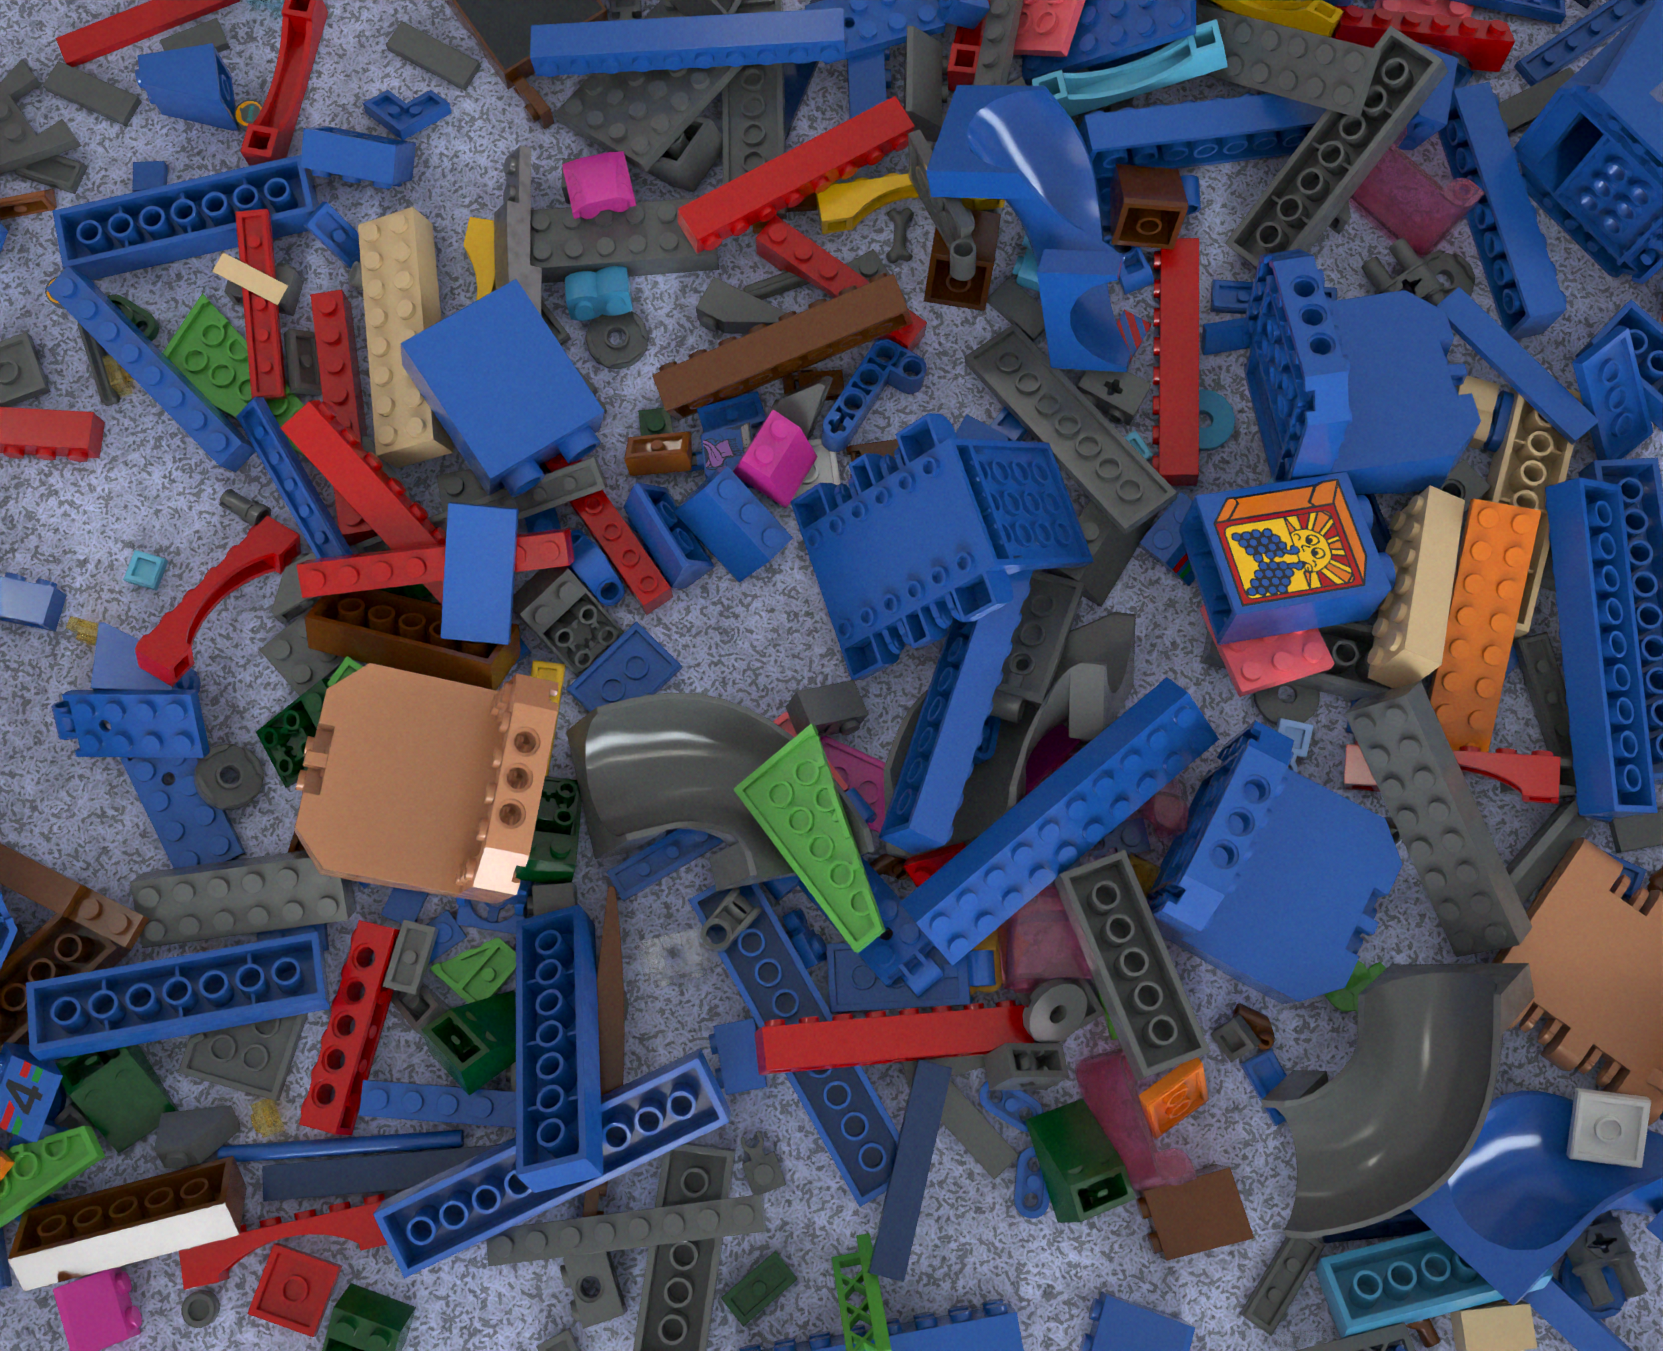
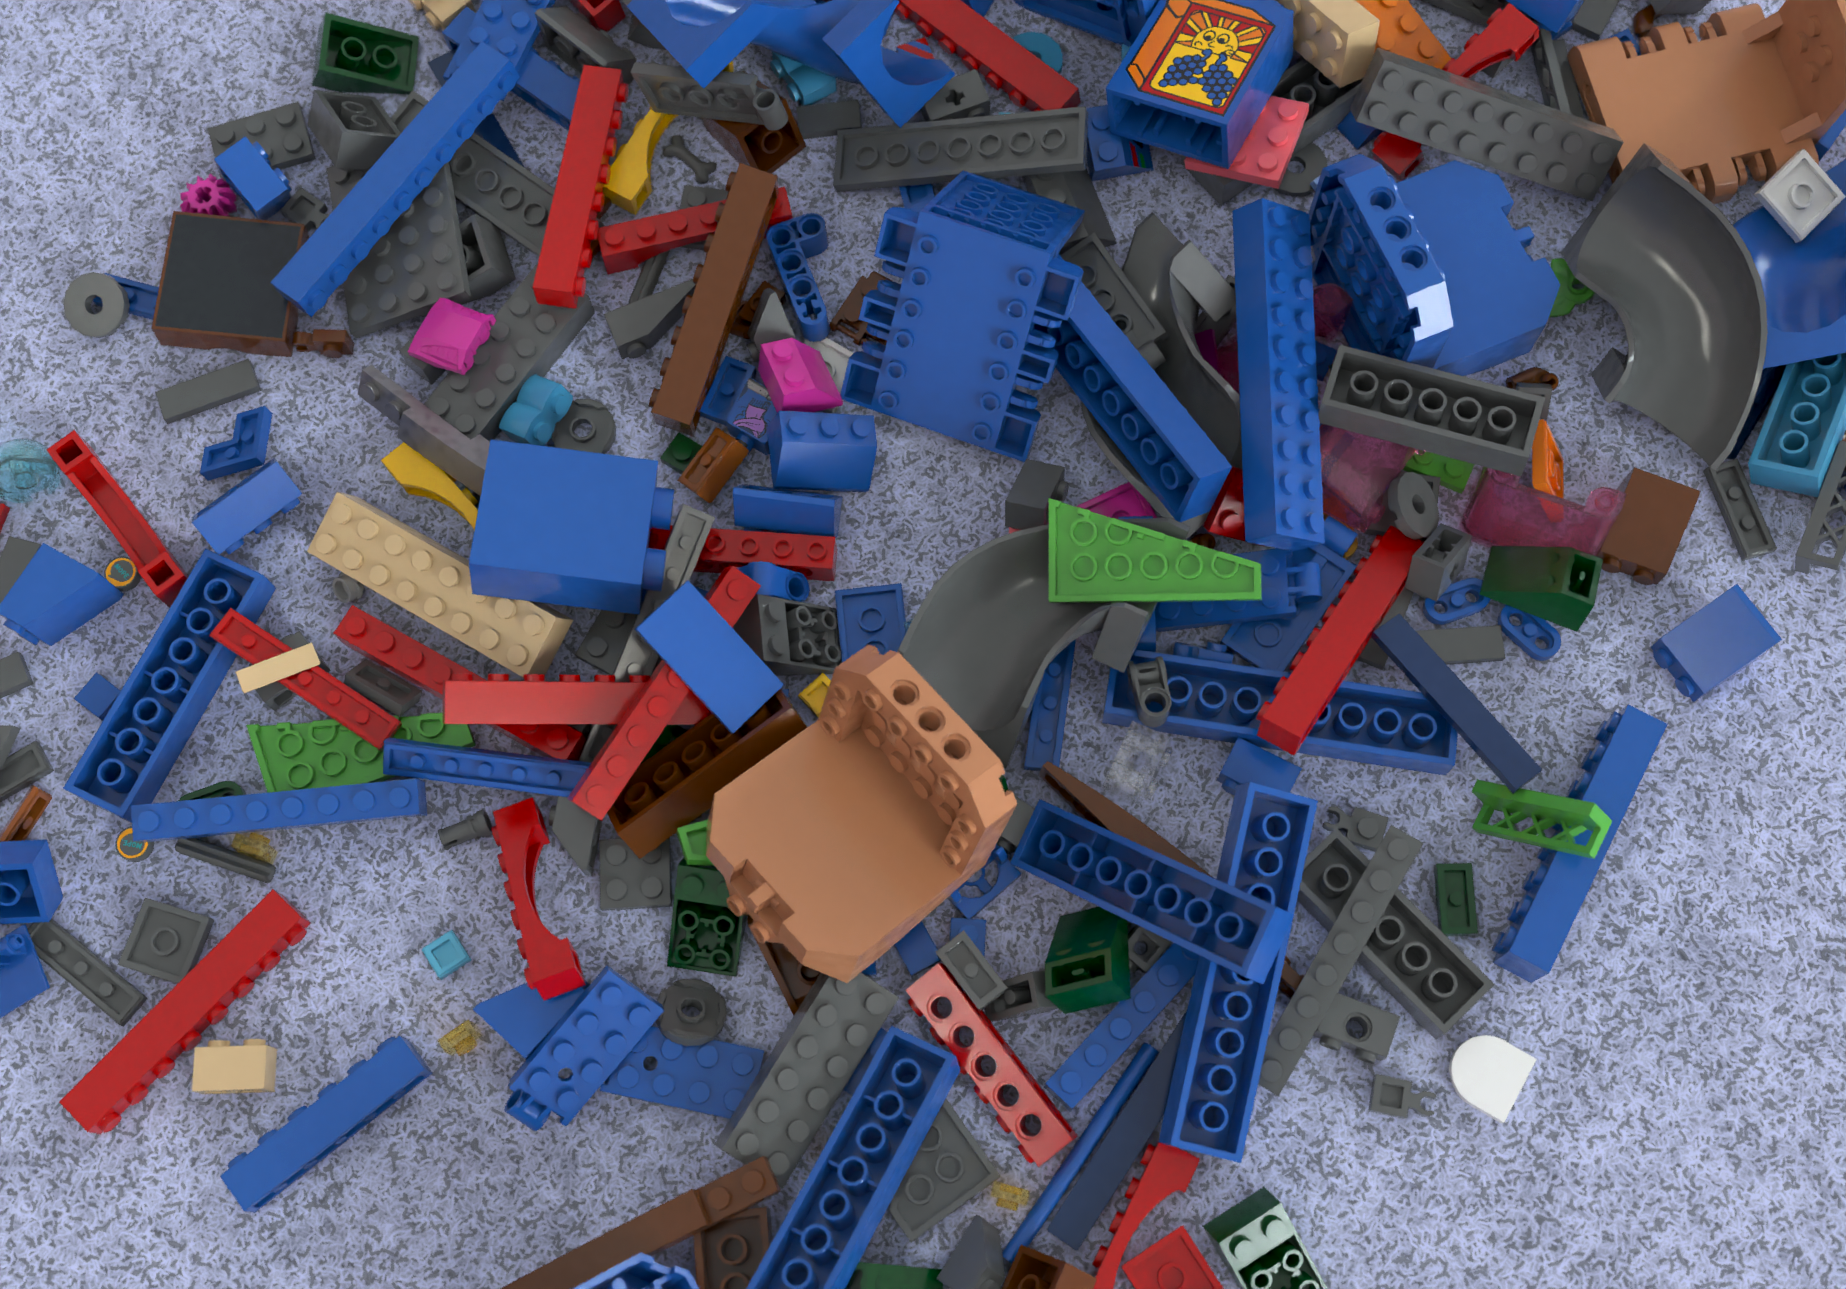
camera: 45 degrees left, 5 degrees down
(334, 233) = (298, 576): blue plate -> none
(479, 971) = (1024, 928): bright green wing -> none
(1264, 1075) = (1585, 406): blue tile -> none

